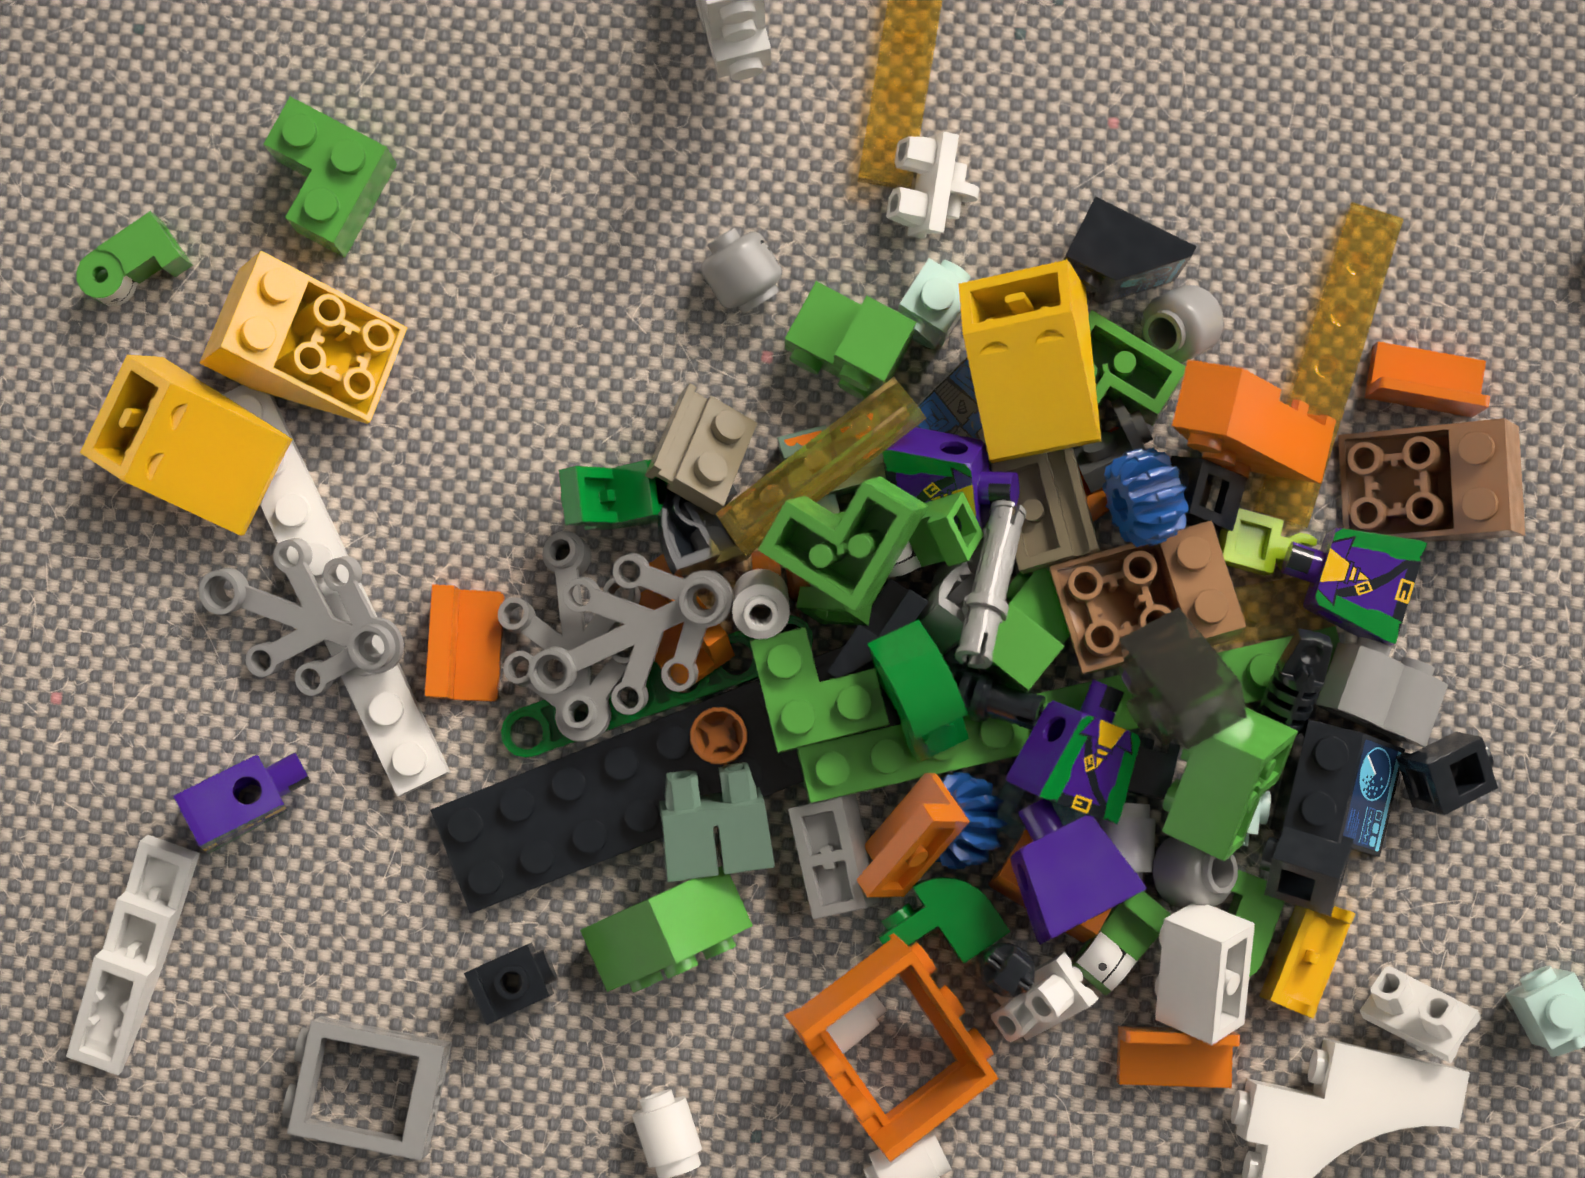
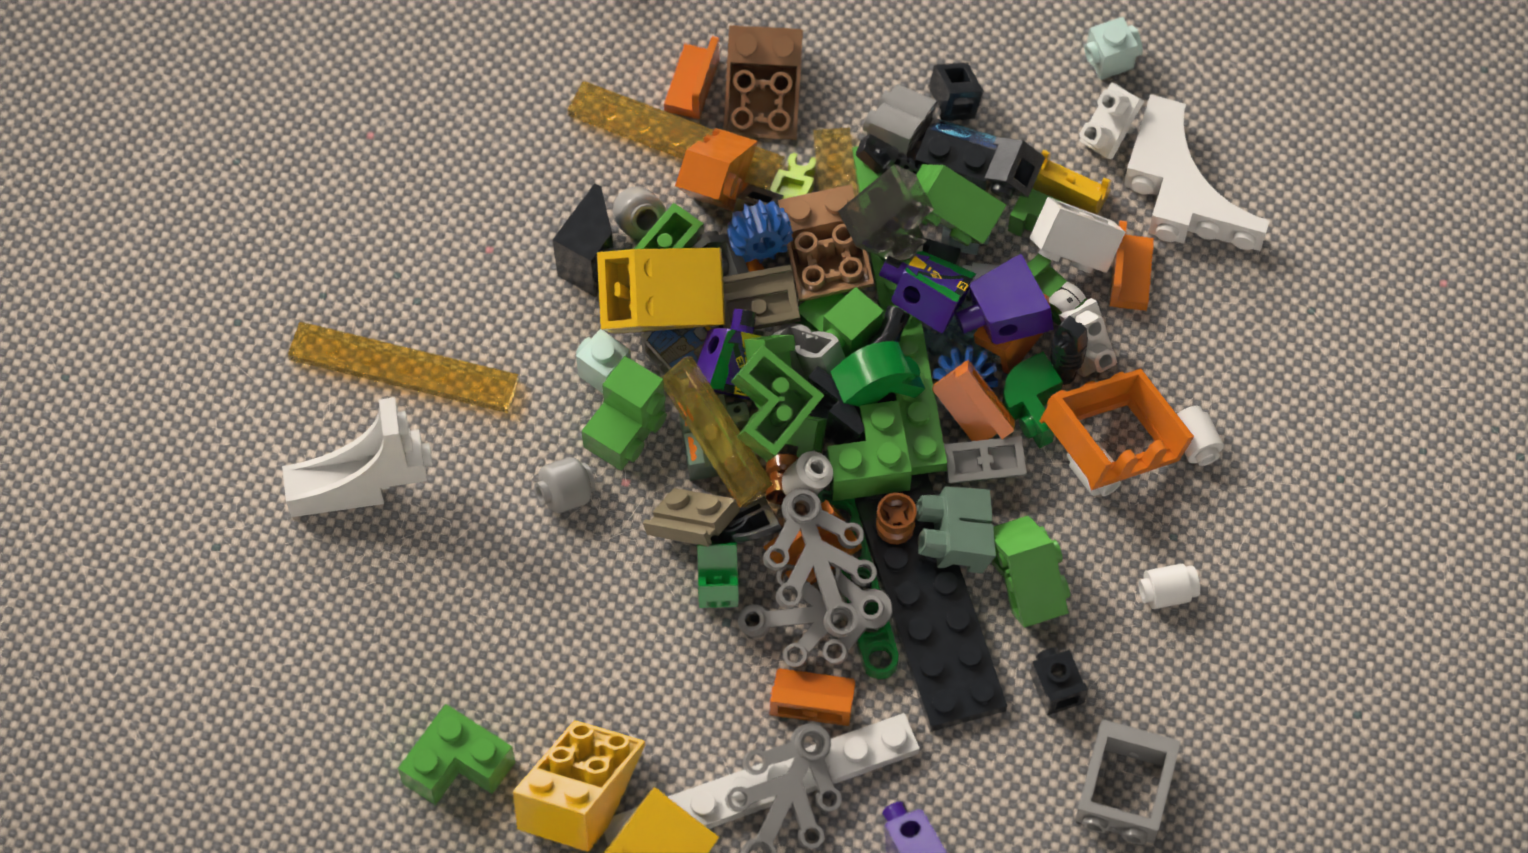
camera: 85 degrees left, 20 degrees down
(938, 184) = (521, 357): white hips -> none
(986, 603) = (821, 326): light grey pin -> none
(1191, 875) = (1009, 238): light grey head -> none
(1358, 580) = (825, 124): torso -> none

